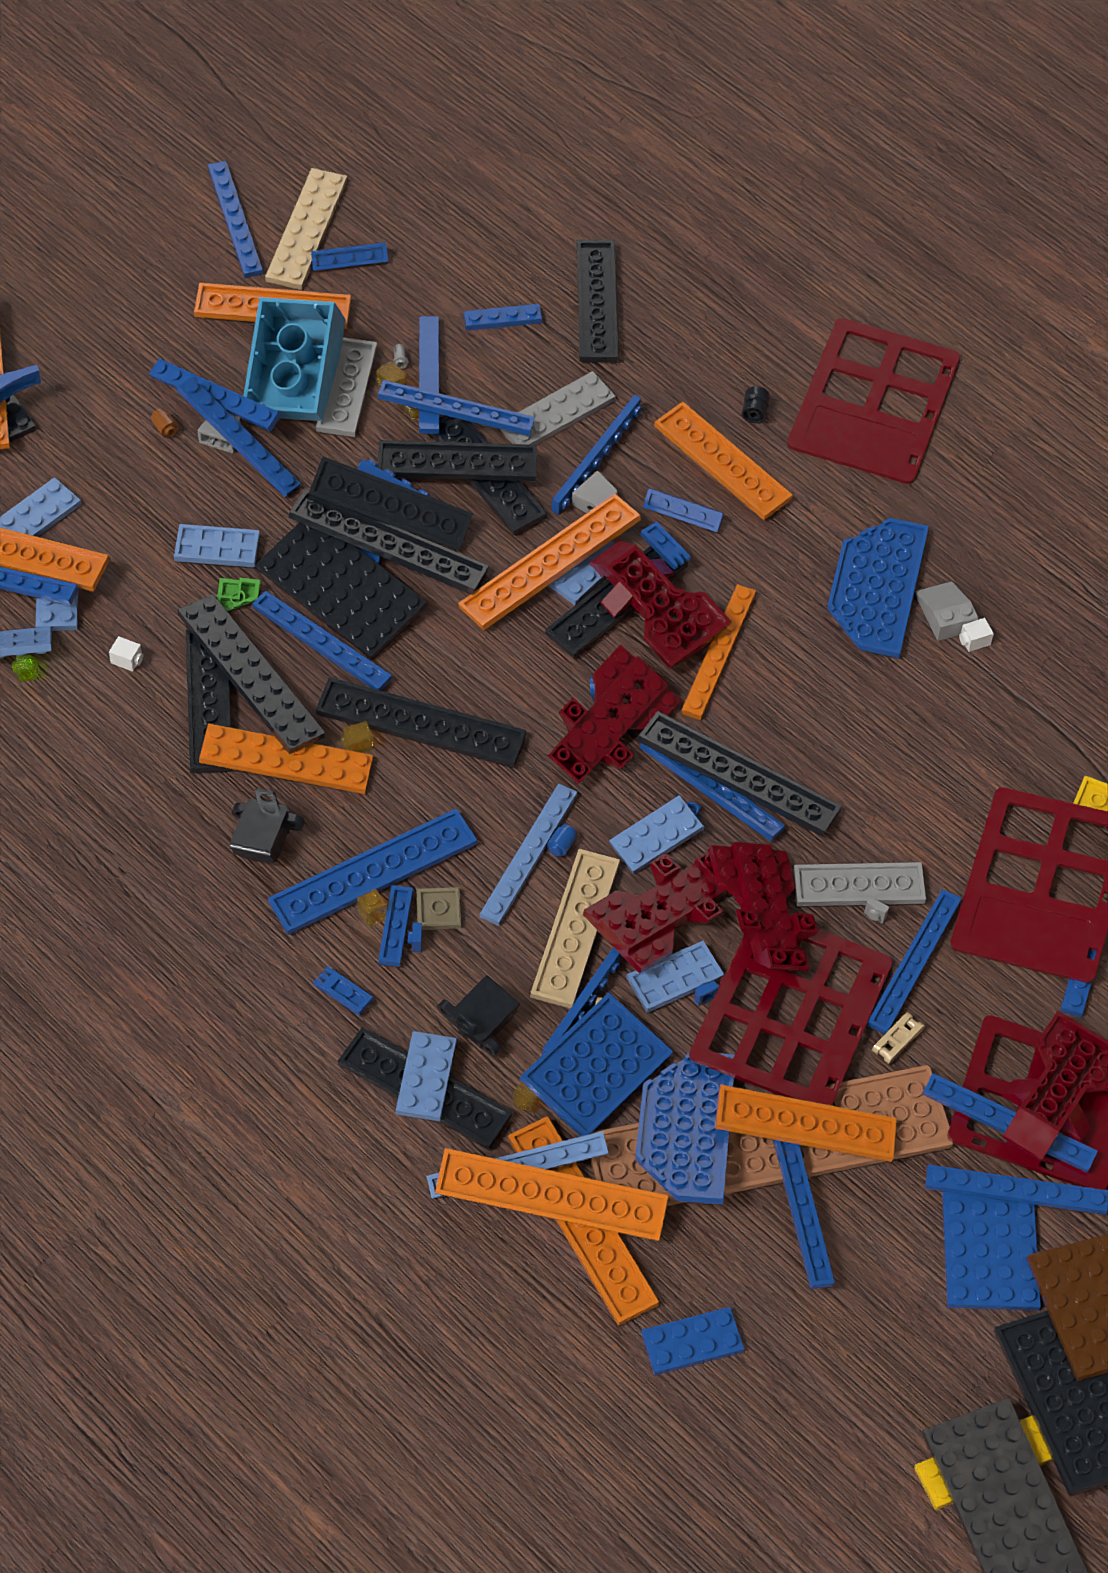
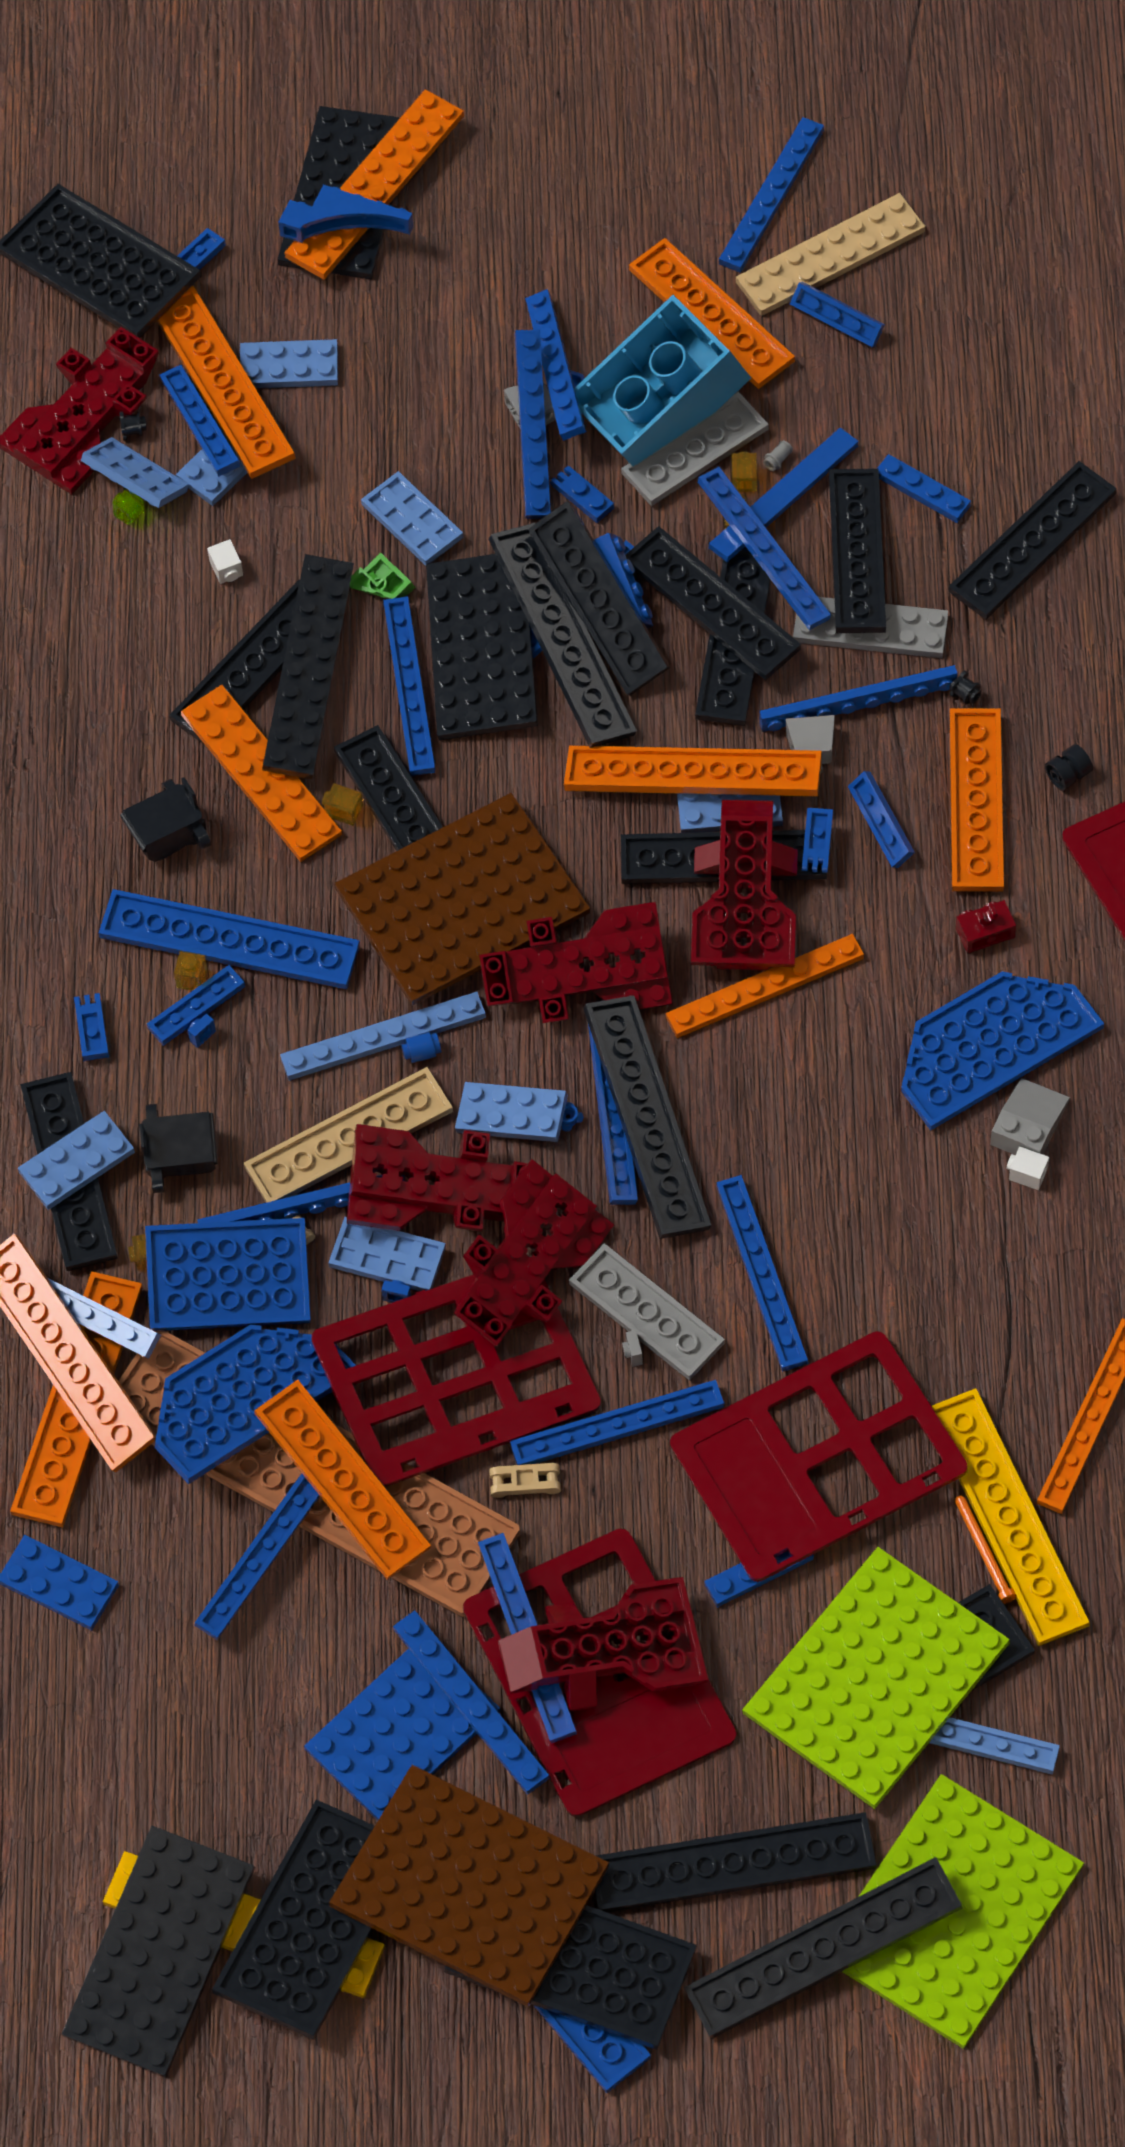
camera: 50 degrees right, 5 degrees up
(164, 422) = (488, 359): dark orange brick -> none
(302, 458) = (582, 494): none -> blue hinge
(439, 908) = (251, 1020): dark tan tile -> none
(492, 737) = (460, 897): none -> reddish brown plate
(508, 374) = (857, 551): none -> black plate
(651, 405) = (965, 688): none -> black brick
(806, 523) = (985, 926): none -> dark red brick
(898, 809) = (762, 1273): none -> blue plate

